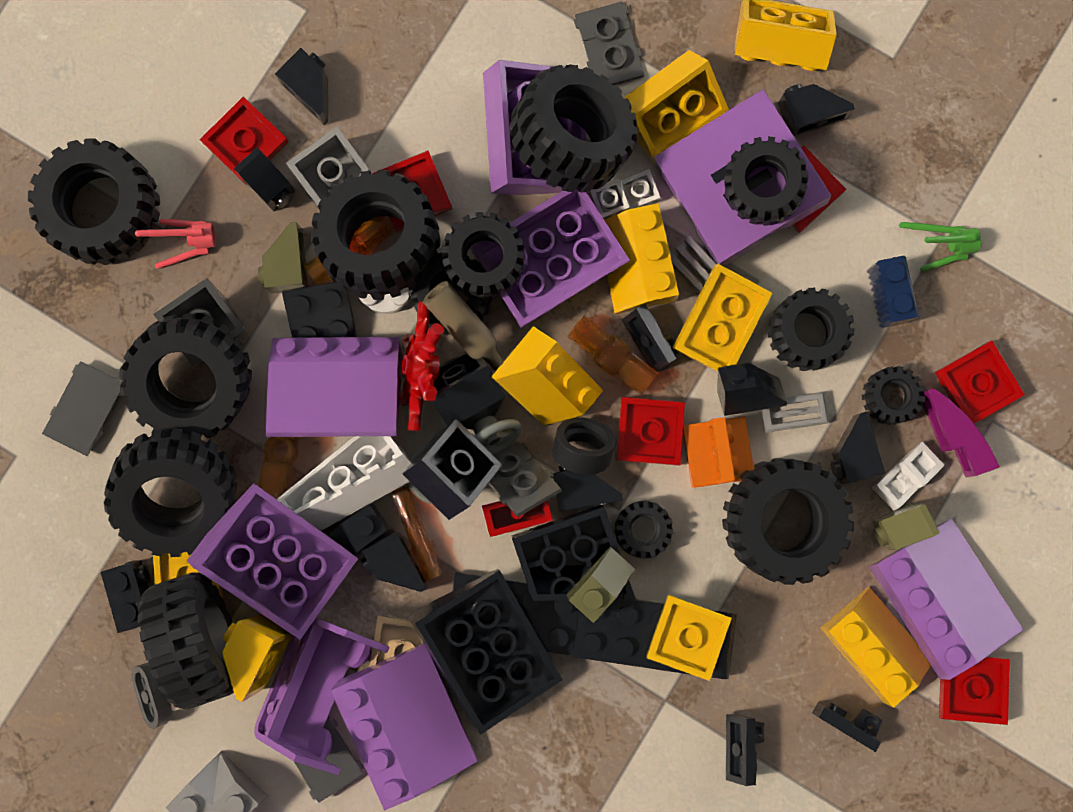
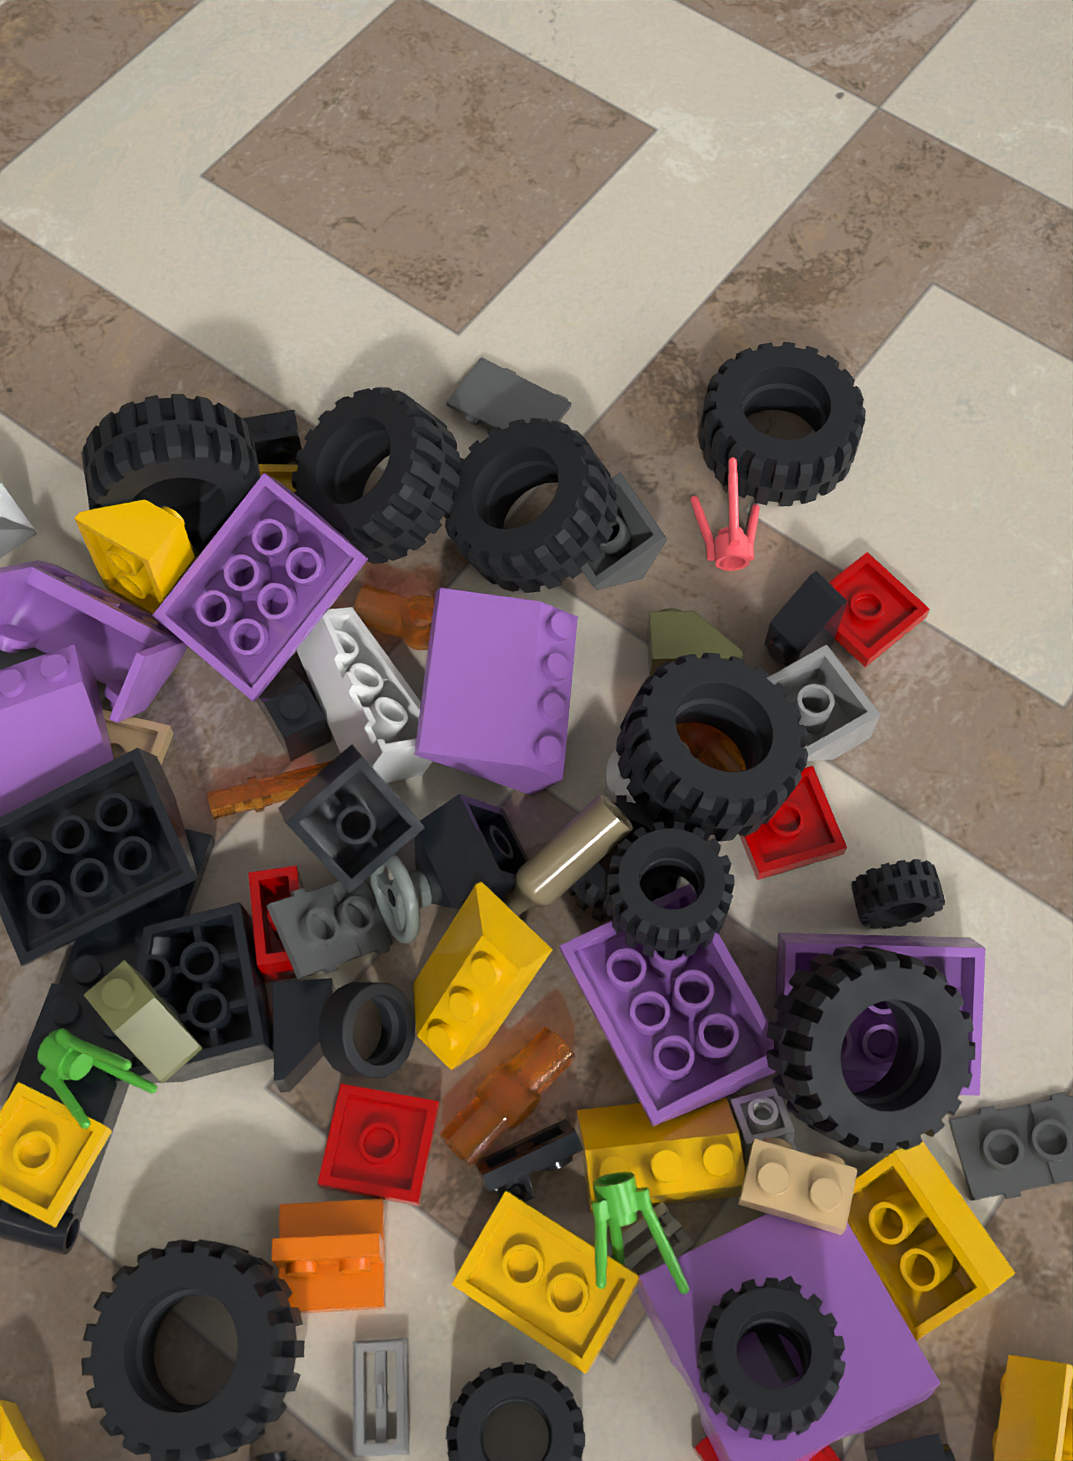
camera: 90 degrees right, 20 degrees down
(307, 82) = (949, 693): black slope -> none
(319, 311) = (606, 683): black plate -> none
(393, 563) = (235, 751): black slope -> none
(420, 366) = (509, 793): red piece -> none
(460, 116) = (897, 894): none -> black tyre
(627, 627) = (72, 1059): none -> bright green plant
(658, 172) = (798, 1185): none -> tan bracket
(663, 529) = (213, 1090): black tyre -> none
(686, 275) = (617, 1206): none -> bright green plant
(748, 389) = (425, 1315): black slope -> none

